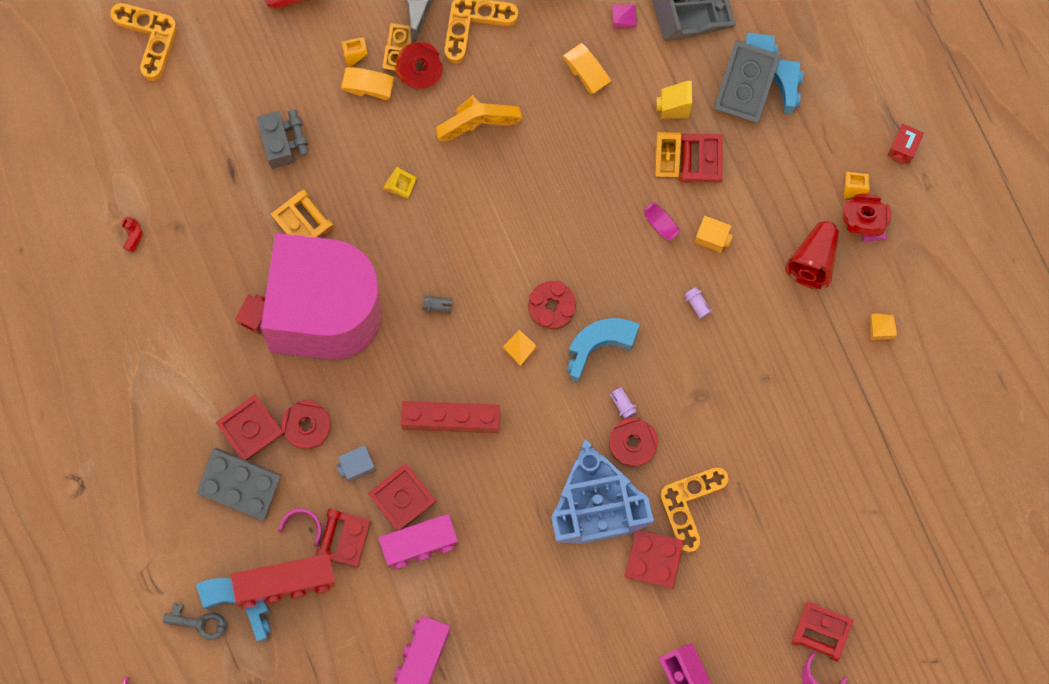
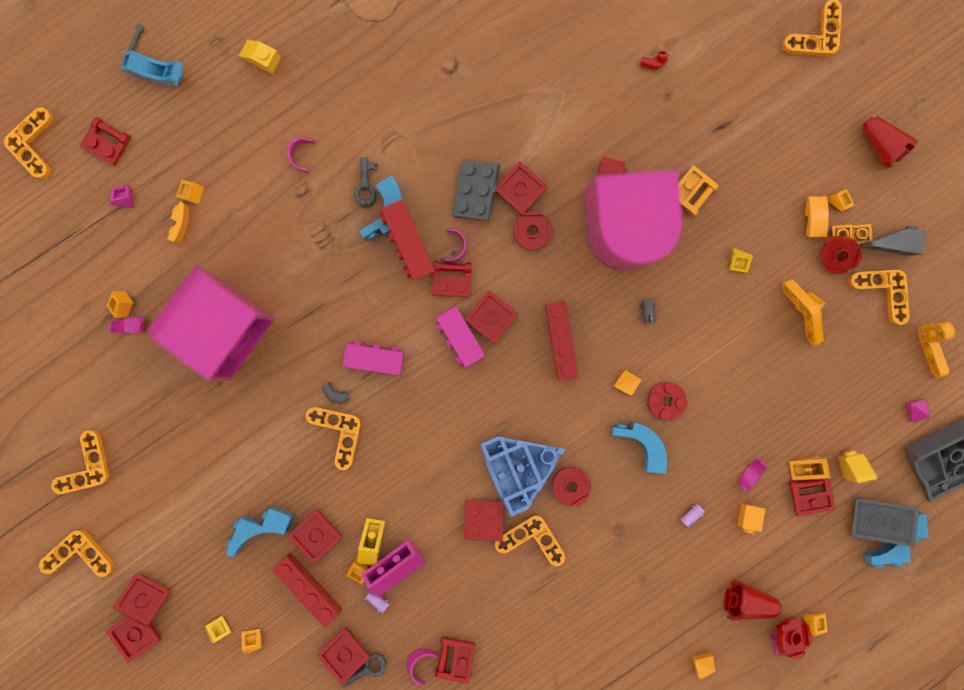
camera: 75 degrees right, 10 degrees up
(276, 141) = (755, 154): dark grey brick -> none
(355, 464) = (509, 275): sand blue brick -> none
(587, 68) = (869, 388): light orange slope -> none
(623, 403) = (600, 472): lavender pin -> none
(905, 144) = (858, 658): red brick -> none

